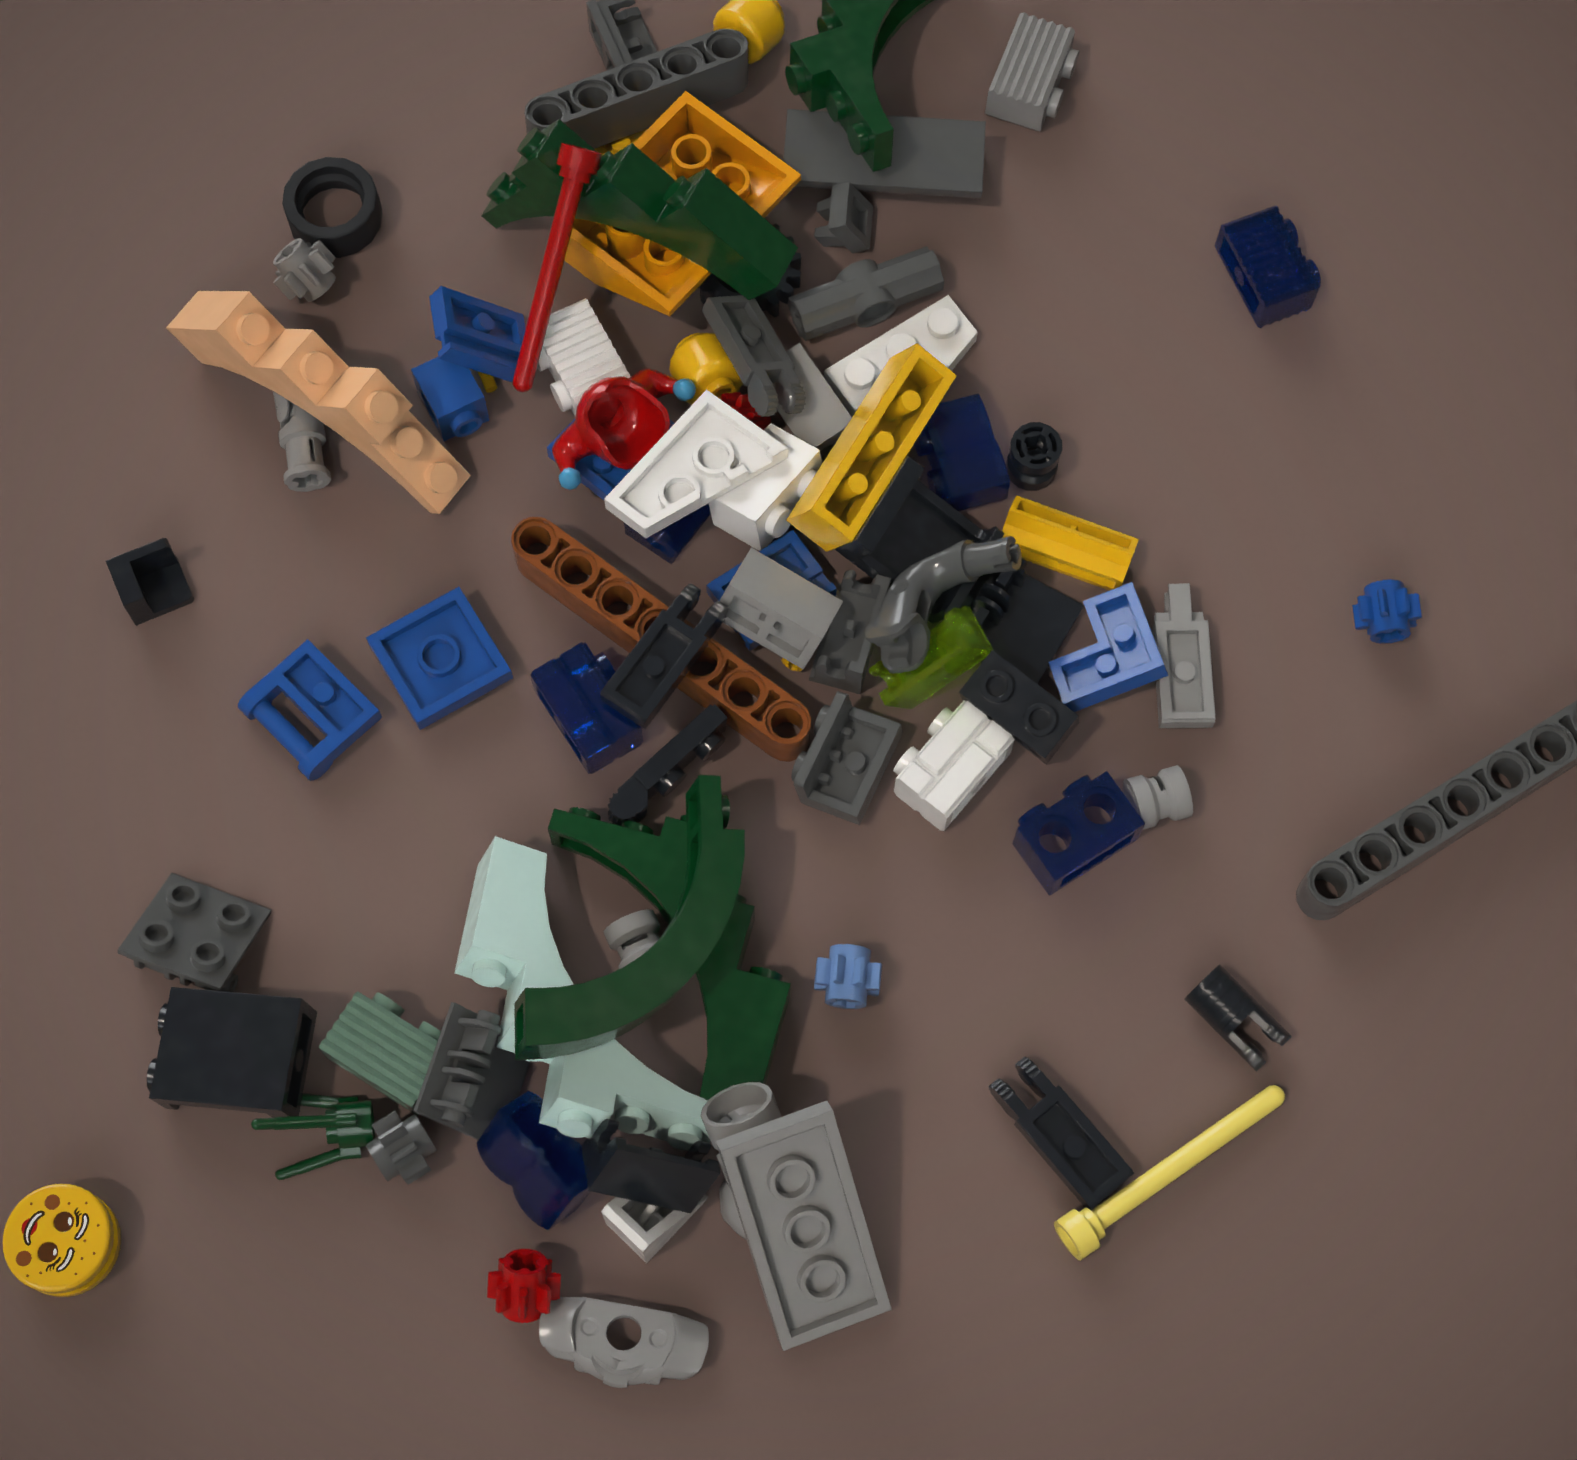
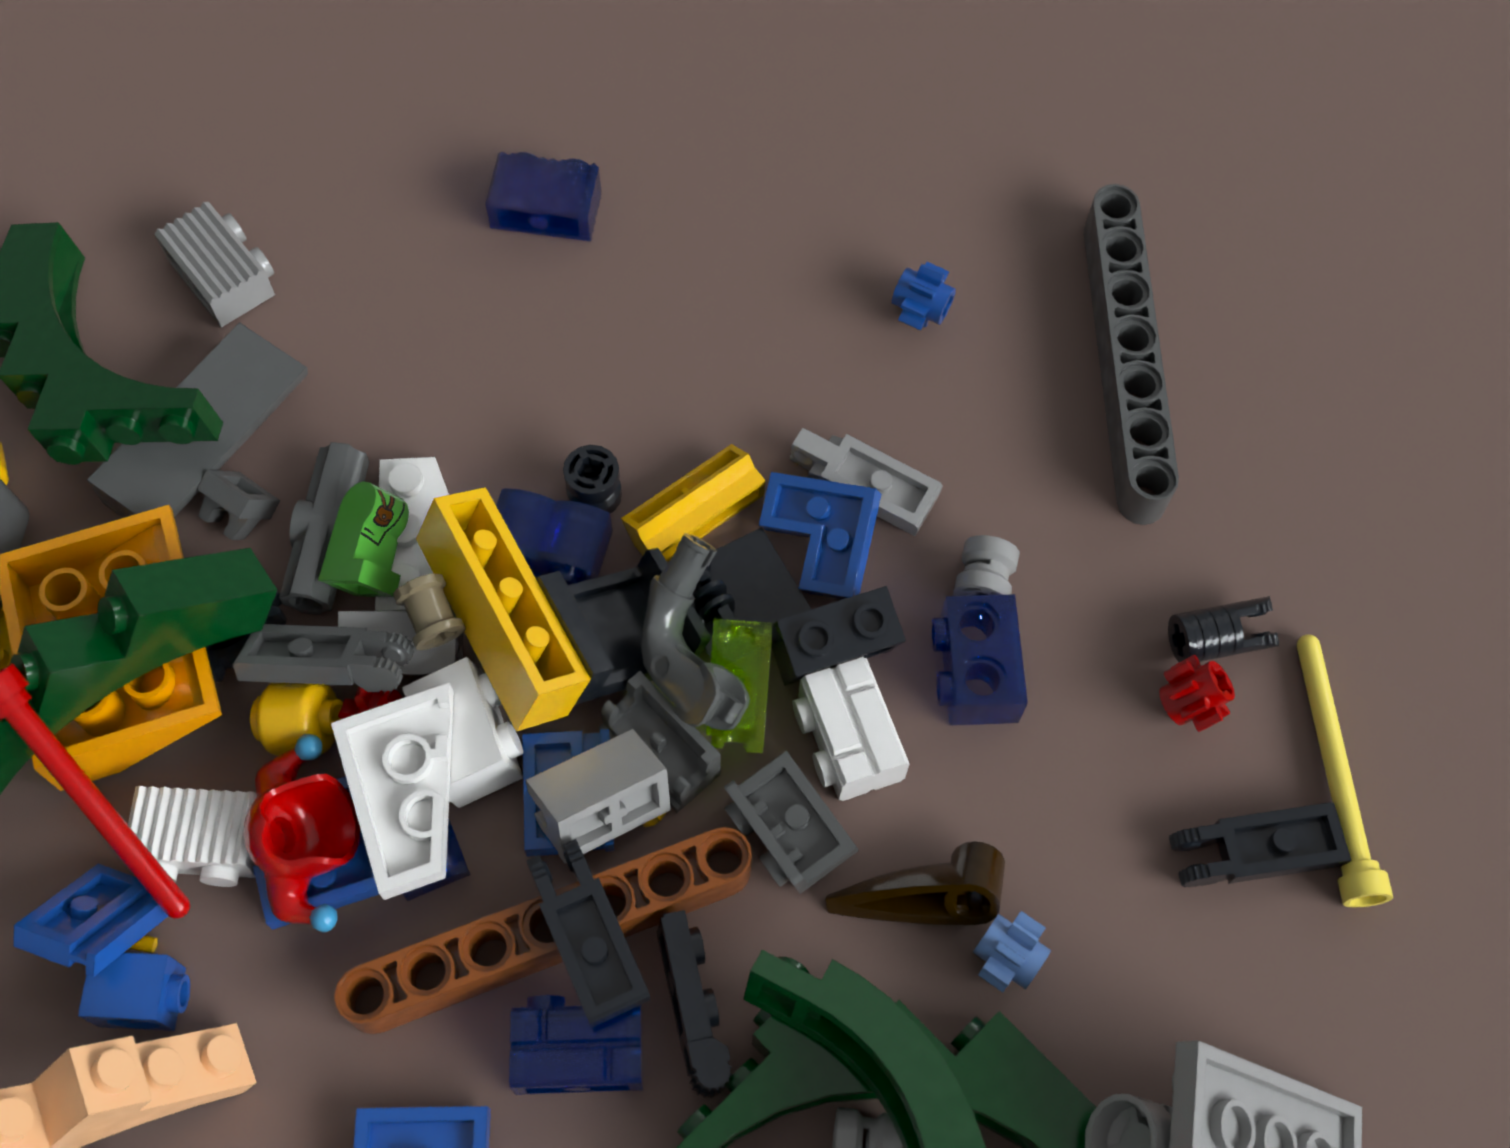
camera: 60 degrees left, 5 degrees down
(835, 401) = (429, 611): none -> dark tan bush
(859, 897) = (941, 894): none -> dark brown piece
(868, 325) = (365, 542): none -> bright green leg
(1159, 1016) = (1196, 693): none -> red gear

